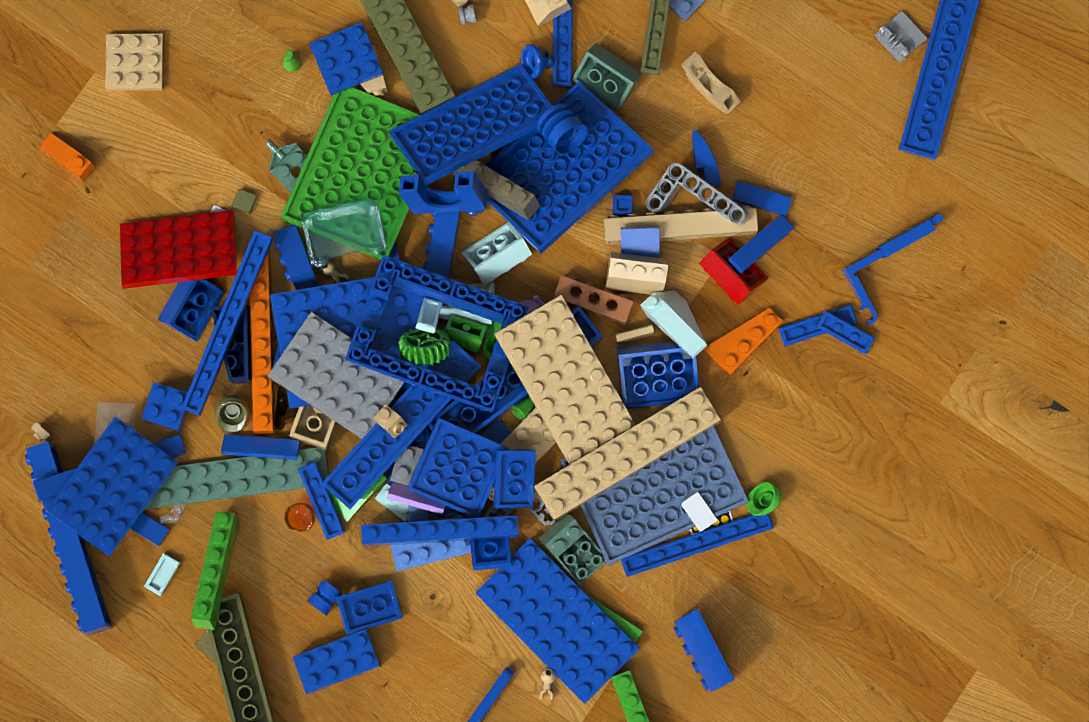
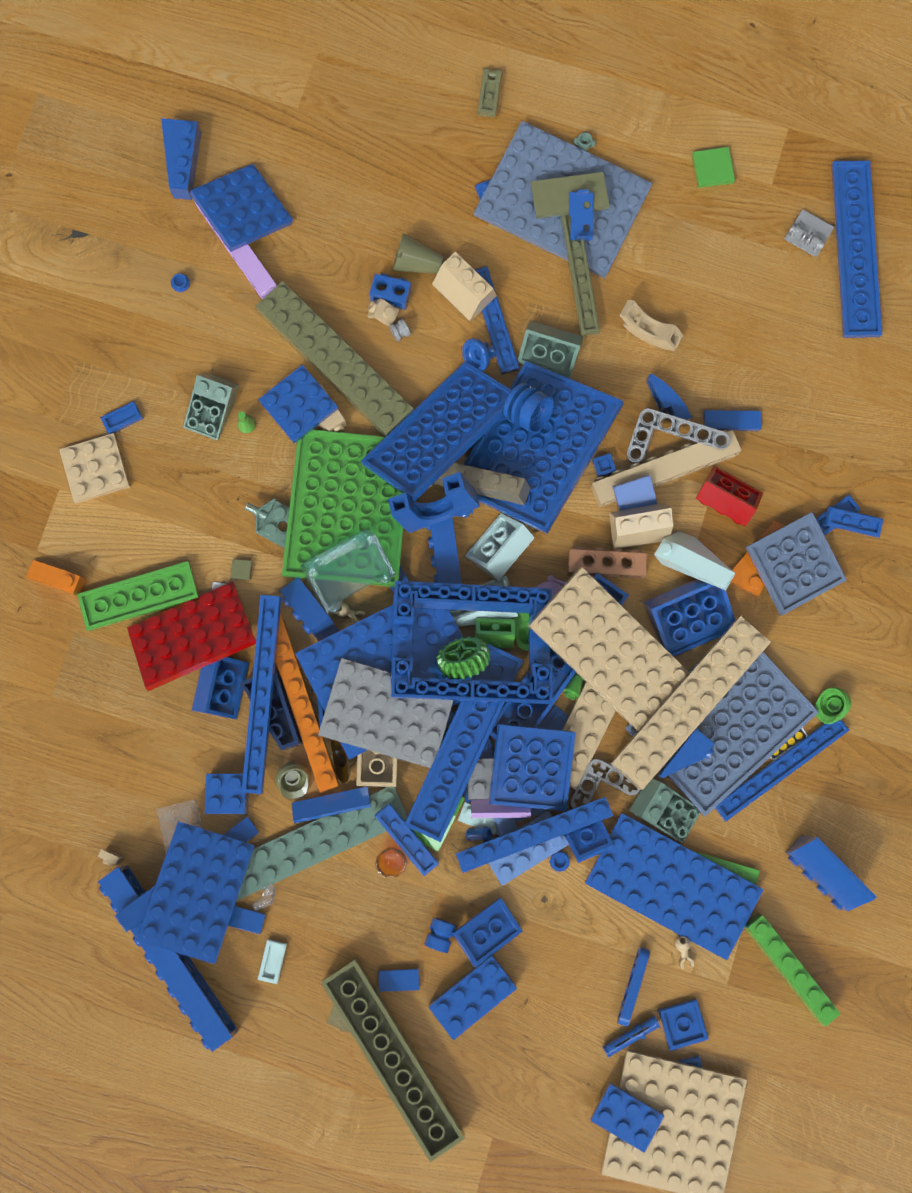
camera: 20 degrees left, 0 degrees up
(139, 197) = (138, 596): none -> bright green plate
(174, 21) = (121, 418): none -> blue tile
(215, 570) = (324, 945): bright green brick -> none
(262, 34) = (210, 405): none -> sand green slope
(273, 627) = (398, 980): none -> blue tile
(390, 421) = (453, 742): tan bracket -> none
(390, 516) = (479, 834): none -> blue pin
(429, 315) = (457, 626): light aqua tile -> none
(458, 565) = (559, 861): none -> blue tile
(514, 478) = (590, 760): blue plate -> none
(612, 500) = (691, 751): none -> blue slope
(634, 334) = (656, 584): tan tile -> none
(699, 512) = (775, 737): white sticker -> none
(761, 244) = (748, 462): blue tile -> none
(774, 354) = (796, 563): none -> sand blue plate
(882, 252) = (864, 434): blue hinge -> none

